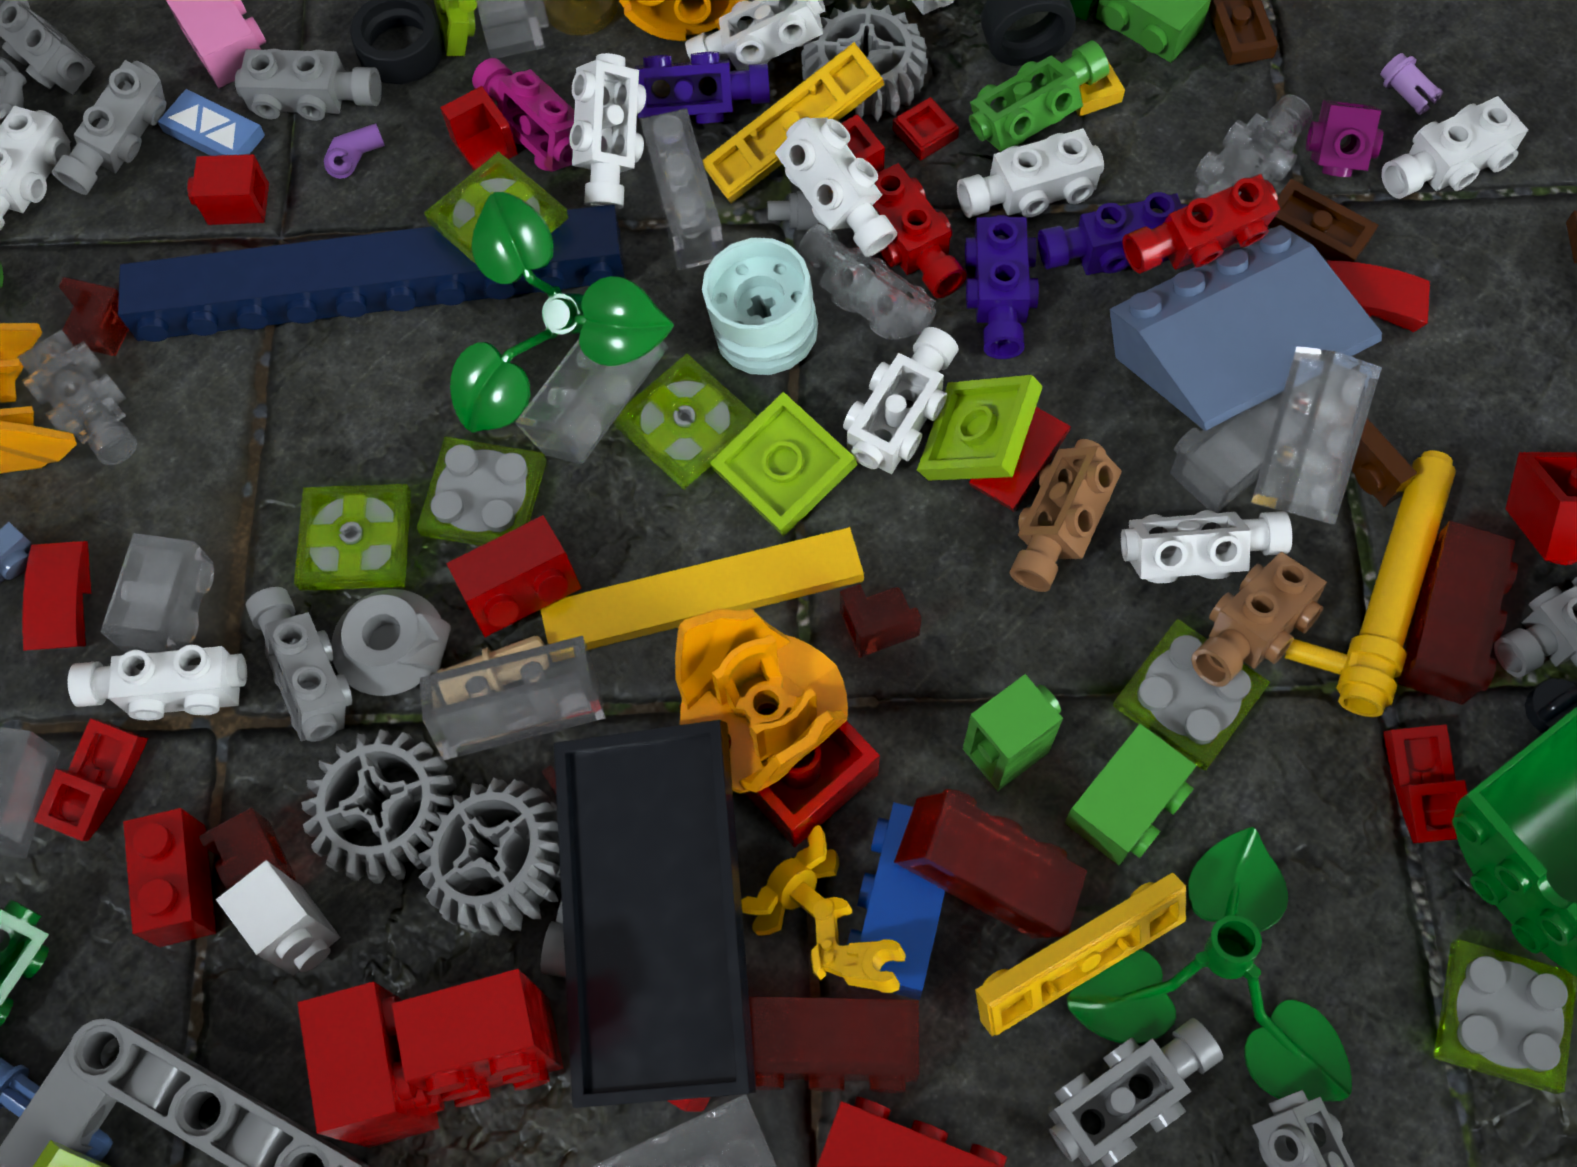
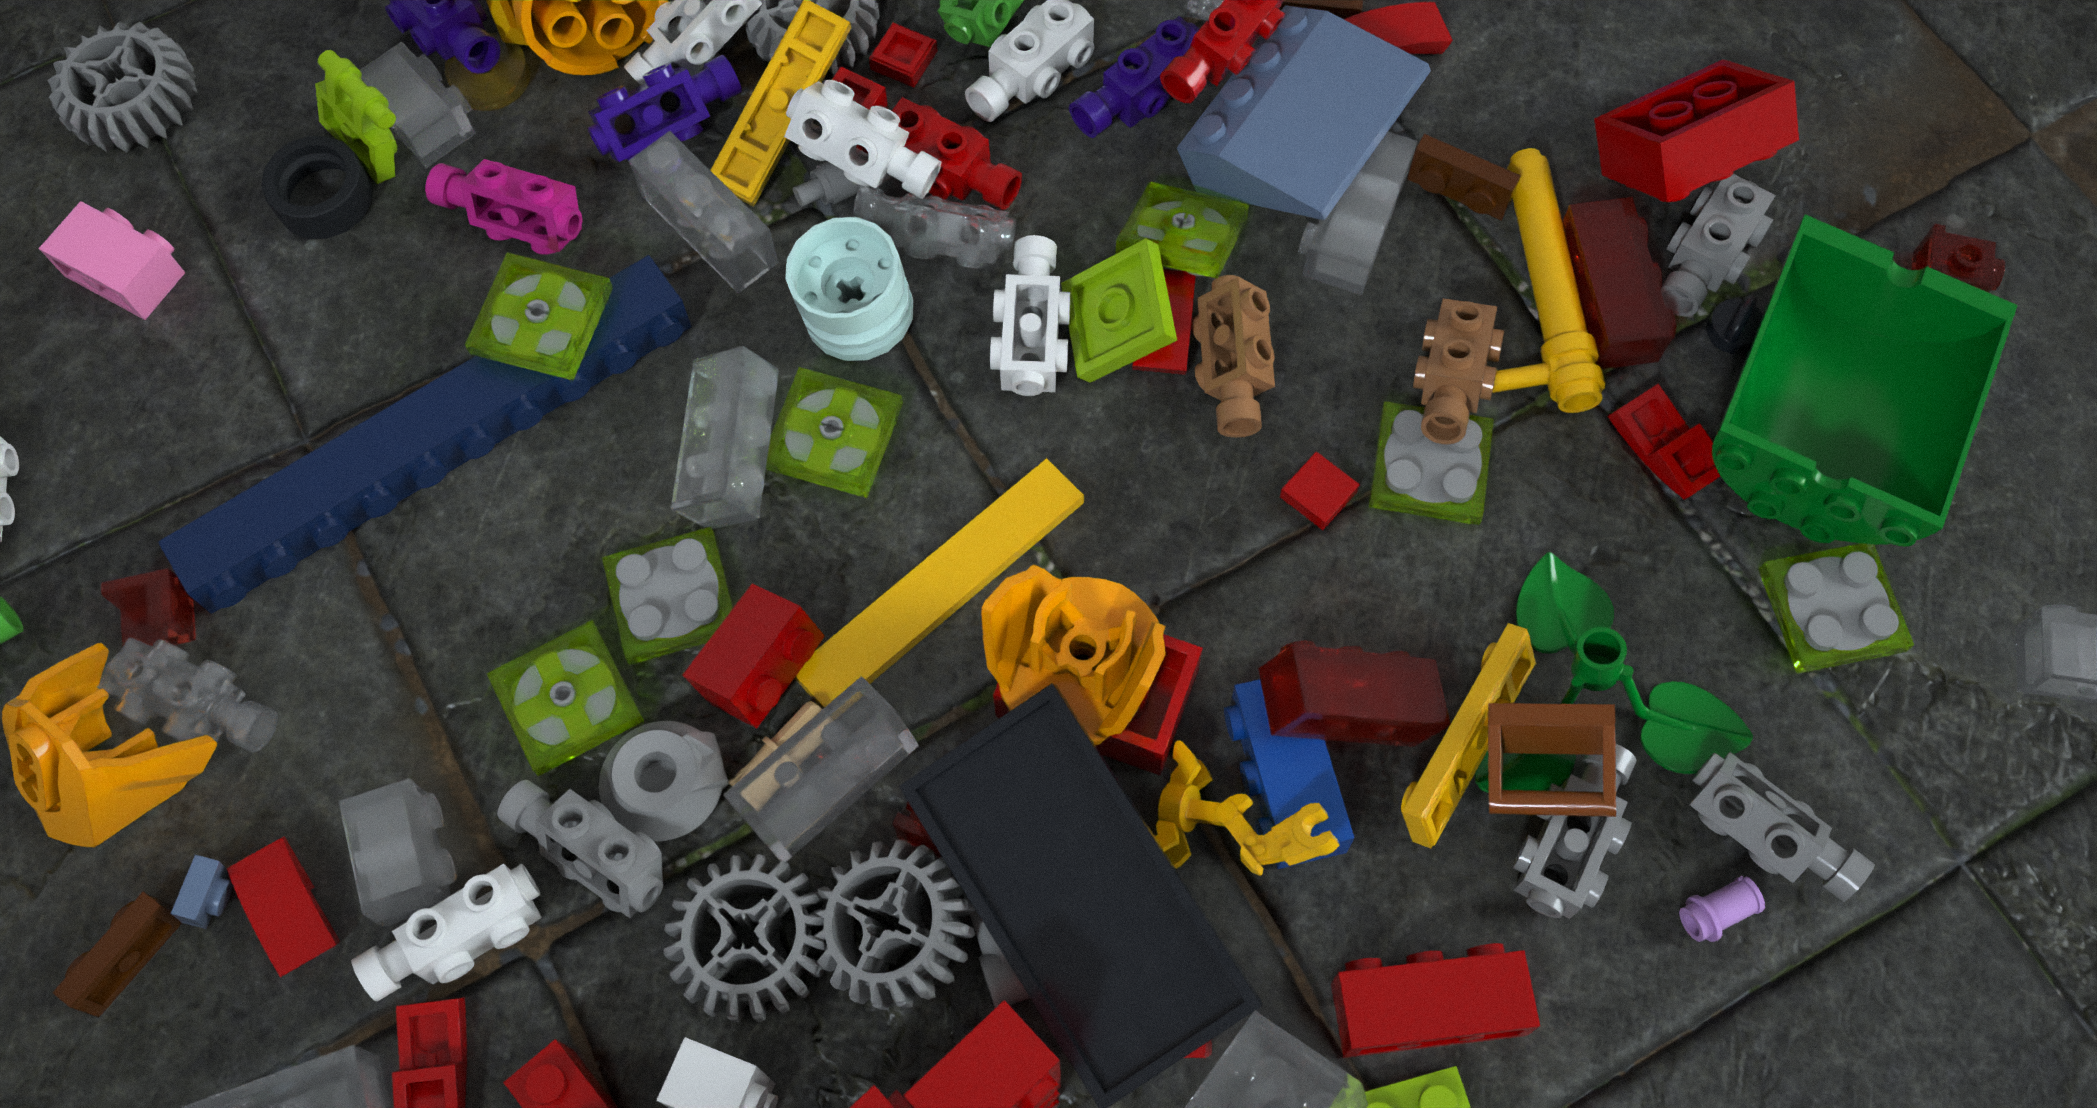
camera: 30 degrees left, 0 degrees up
(117, 136) = (59, 407): light grey brick -> none
(210, 126) = (164, 363): medium blue tile -> none
(229, 189) = (225, 416): red brick -> none
(243, 846) = (640, 1047): clear red brick -> none
(303, 83) = (240, 275): light grey brick -> none
(348, 149) = (328, 320): medium lavender arm -> none
(478, 128) = (461, 242): red panel -> none
(605, 126) = (601, 182): white brick -> none
(612, 316) = (728, 361): green plant -> none
(783, 463) = (950, 428): lime plate -> none
(835, 1042) = (1305, 923): clear red brick -> none
(878, 619) = (1119, 530): clear red panel -> none
(999, 254) = (1040, 142): dark purple brick -> none
(1012, 731) = (1304, 569): bright green brick -> none
(1074, 670) = (1319, 490): none -> red tile
(1081, 383) = (1189, 226): none -> clear neon green piece
(1130, 795) = (1433, 576): bright green brick -> none
(1156, 991) = (1551, 730): none -> dark orange tile
(1210, 553) = (1361, 336): white brick -> none
(1316, 434) = (1421, 179): clear brick -> none

